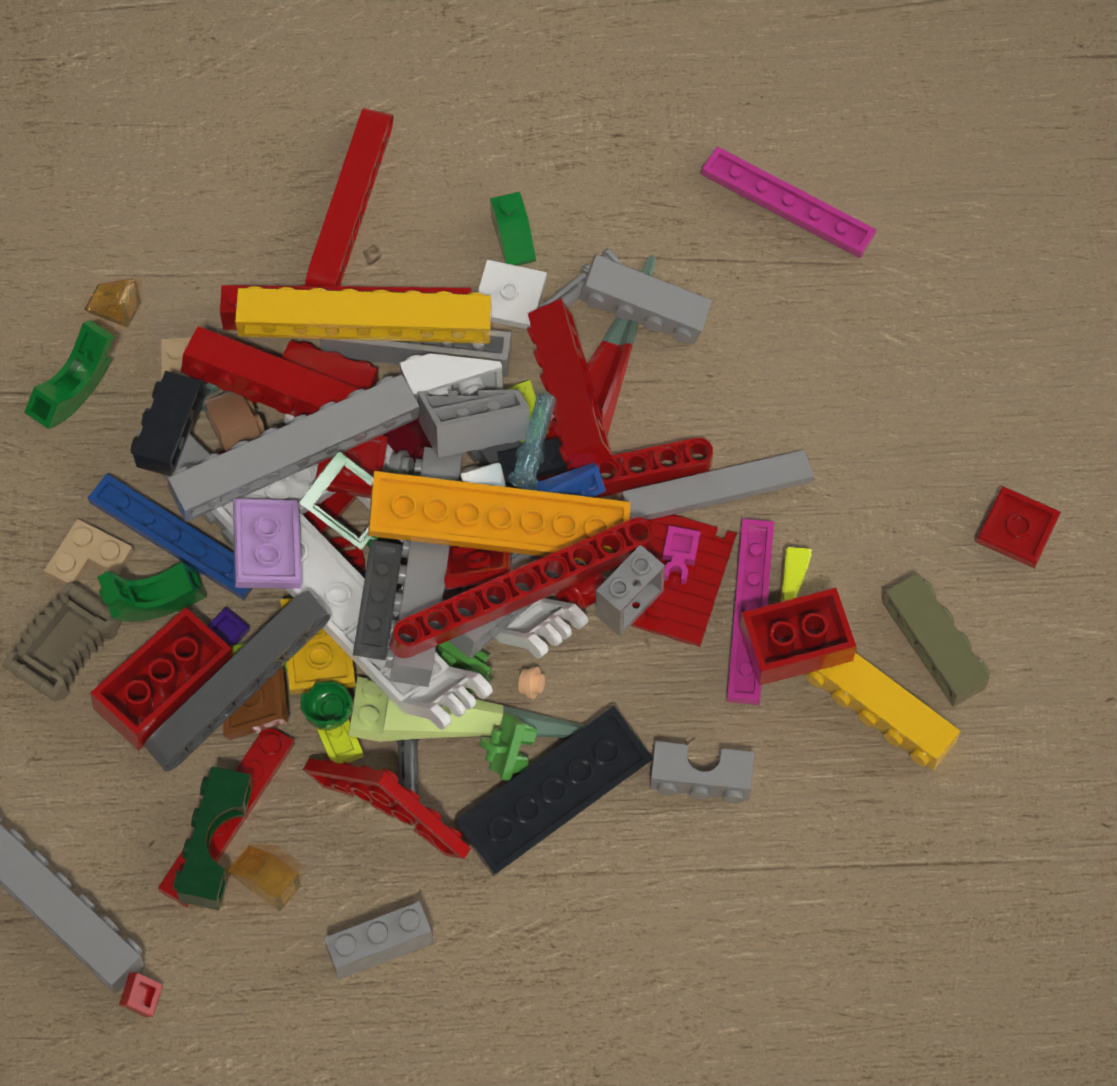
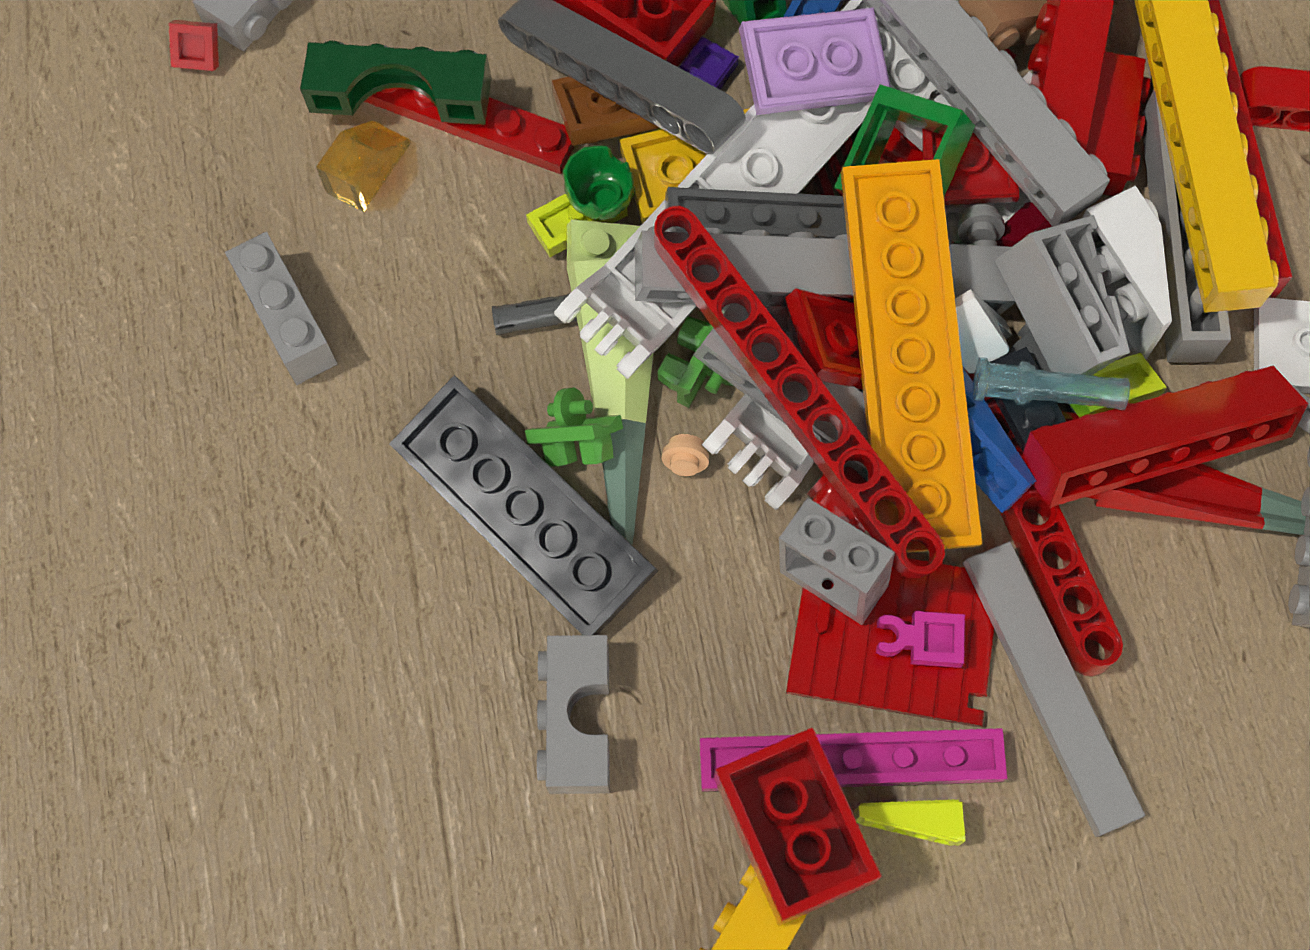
camera: 85 degrees right, 5 degrees up
(389, 797) = (458, 272): red plate -> none

